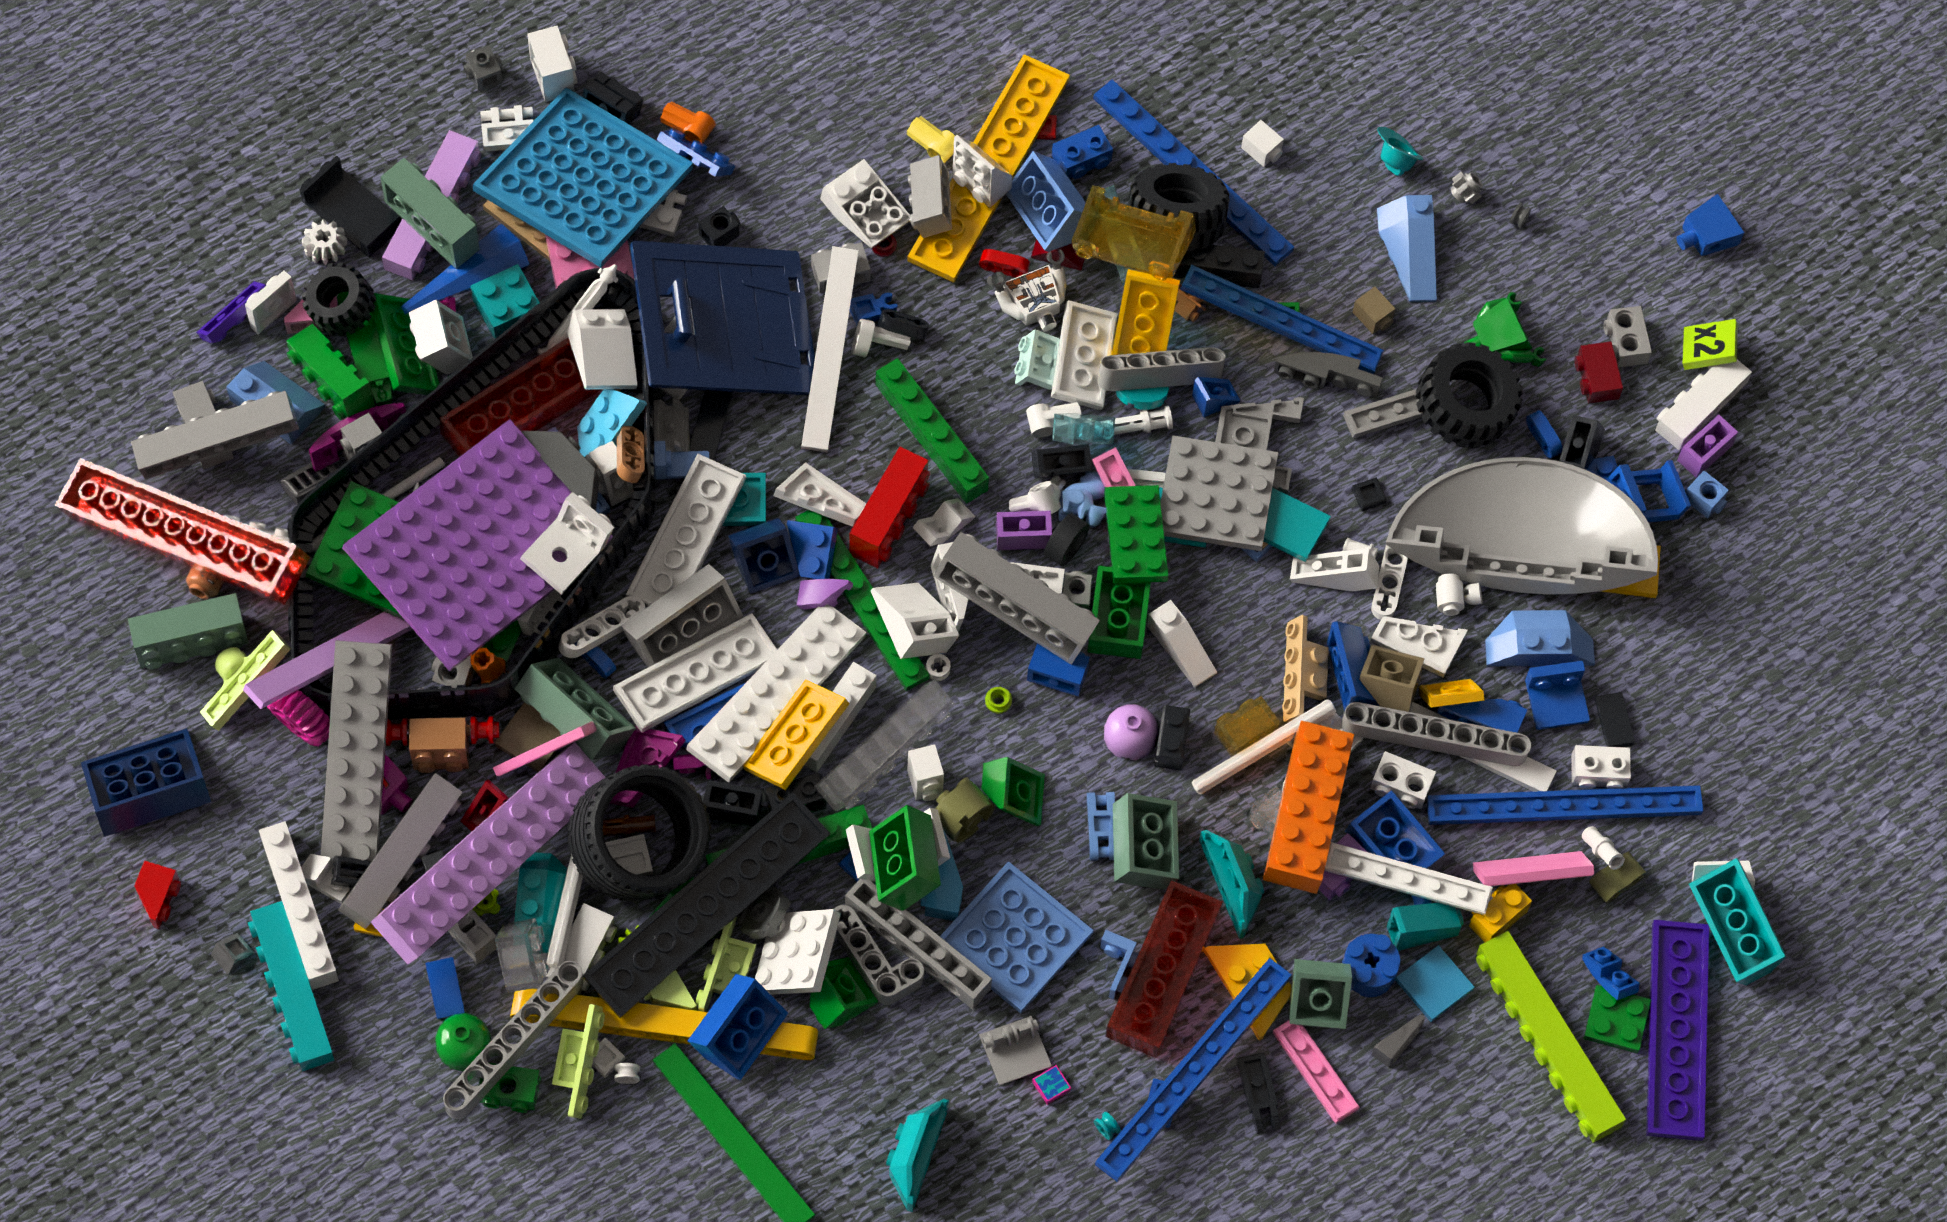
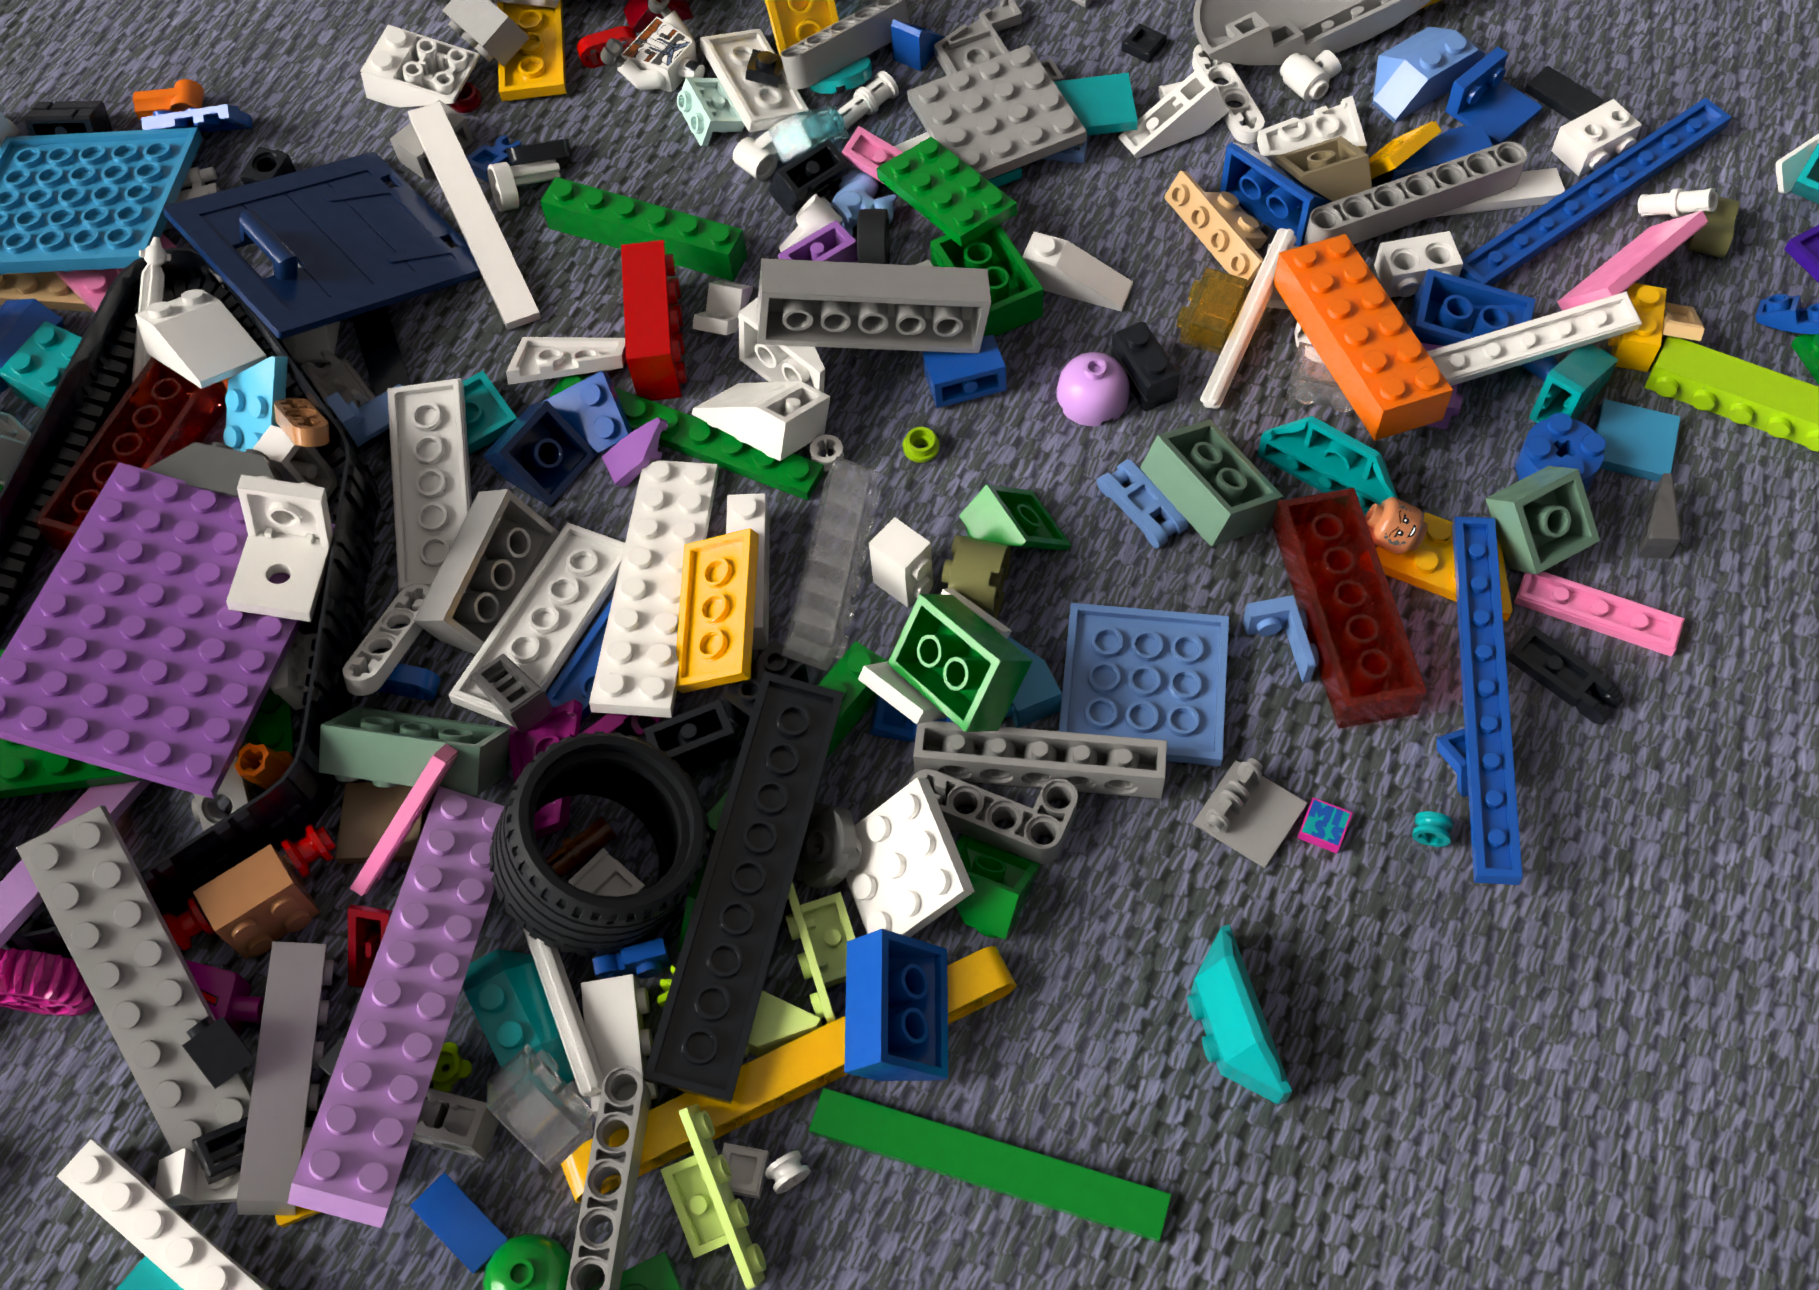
camera: 25 degrees left, 5 degrees down
(376, 817) = (217, 1050): none -> black brick
(625, 912) = (642, 959): none -> blue plate
(654, 724) = (514, 694): none -> flat silver slope
(1093, 352) = (764, 68): none -> black plate
(1229, 940) = (1396, 525): none -> nougat head
(1527, 926) = (1682, 322): none -> tan tile

